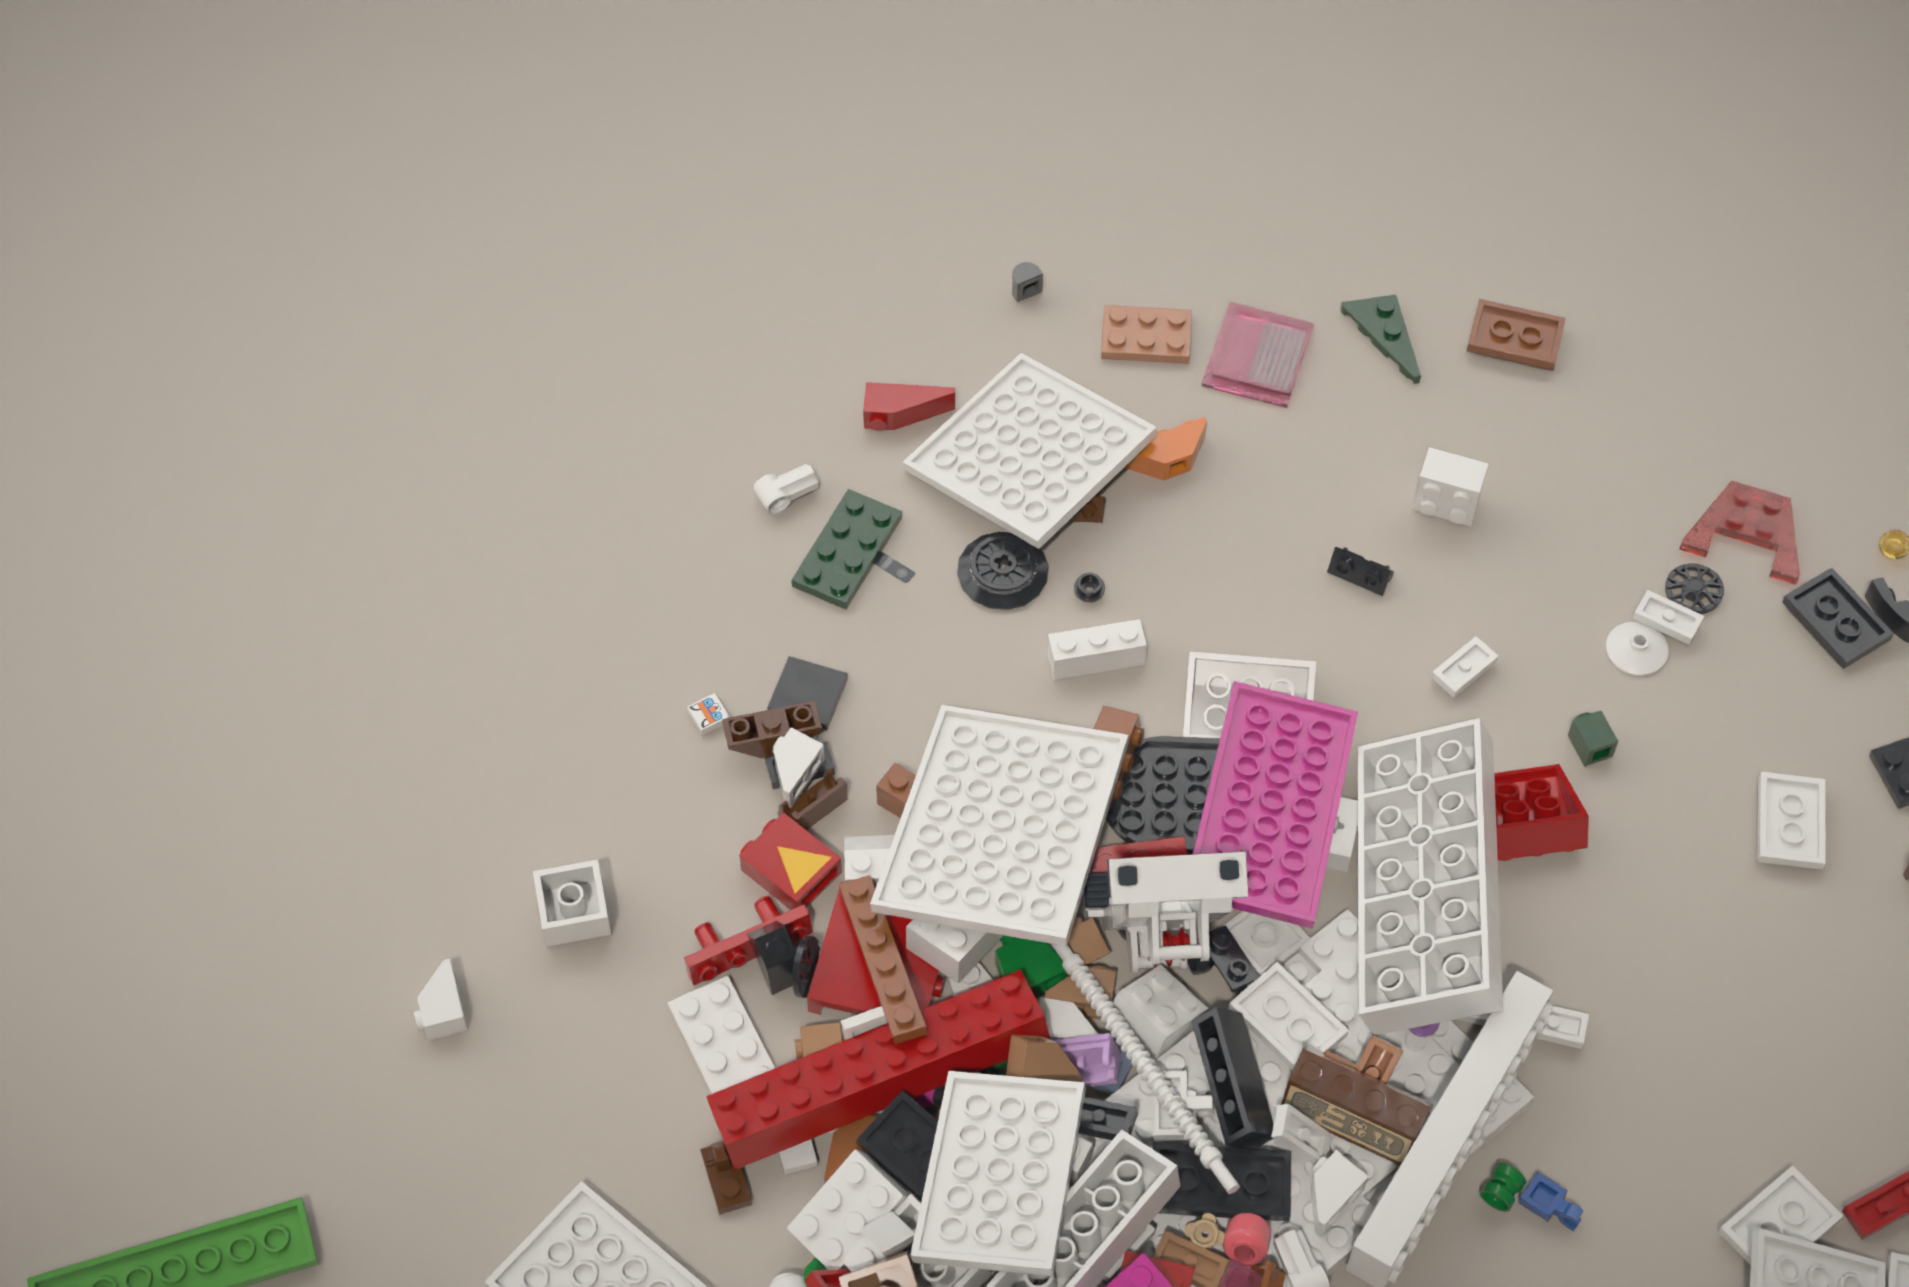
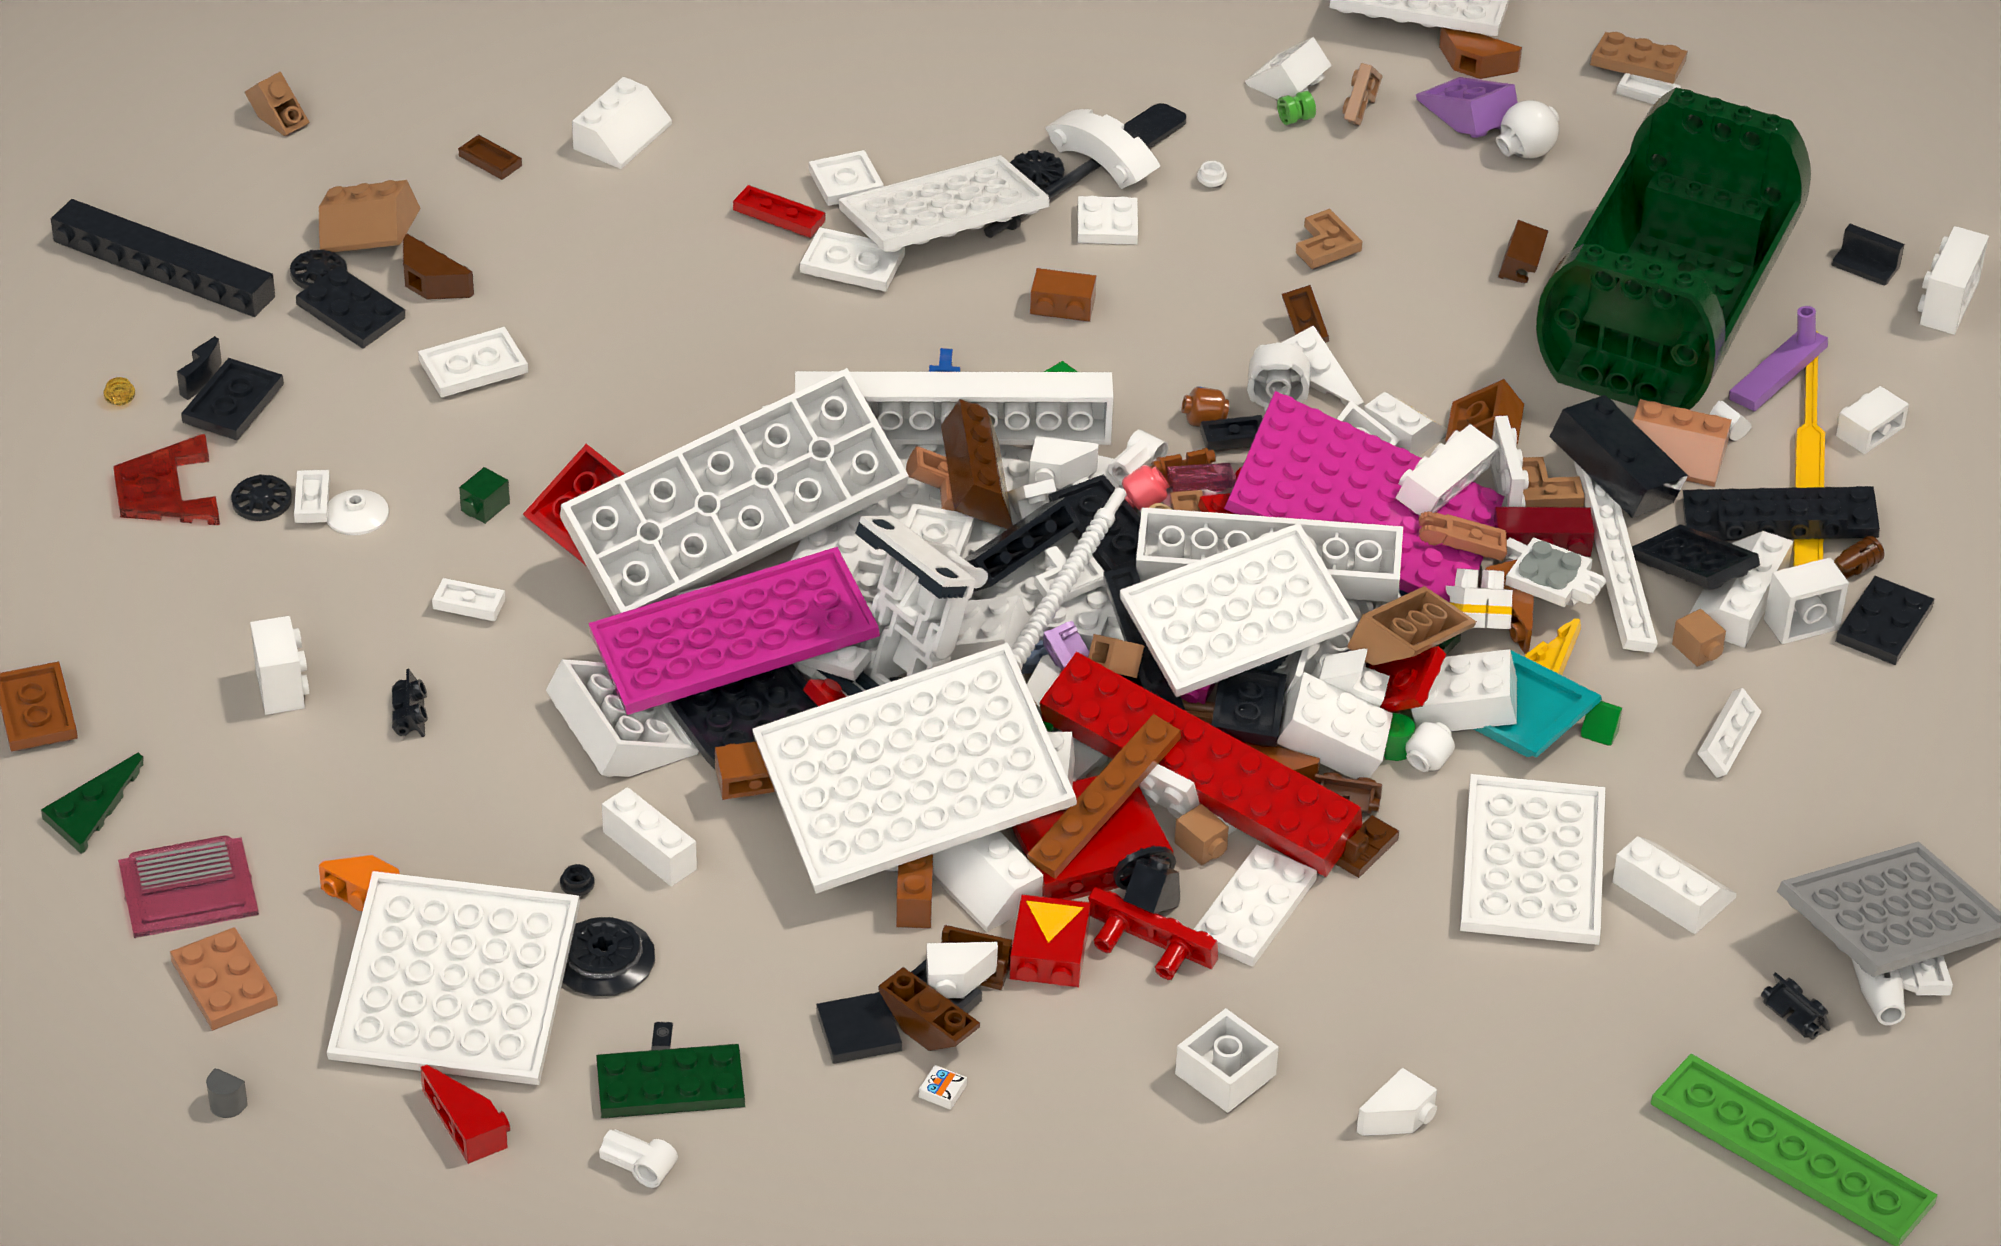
camera: 125 degrees left, 15 degrees down
(782, 1209) = (1361, 791): none -> reddish brown hinge

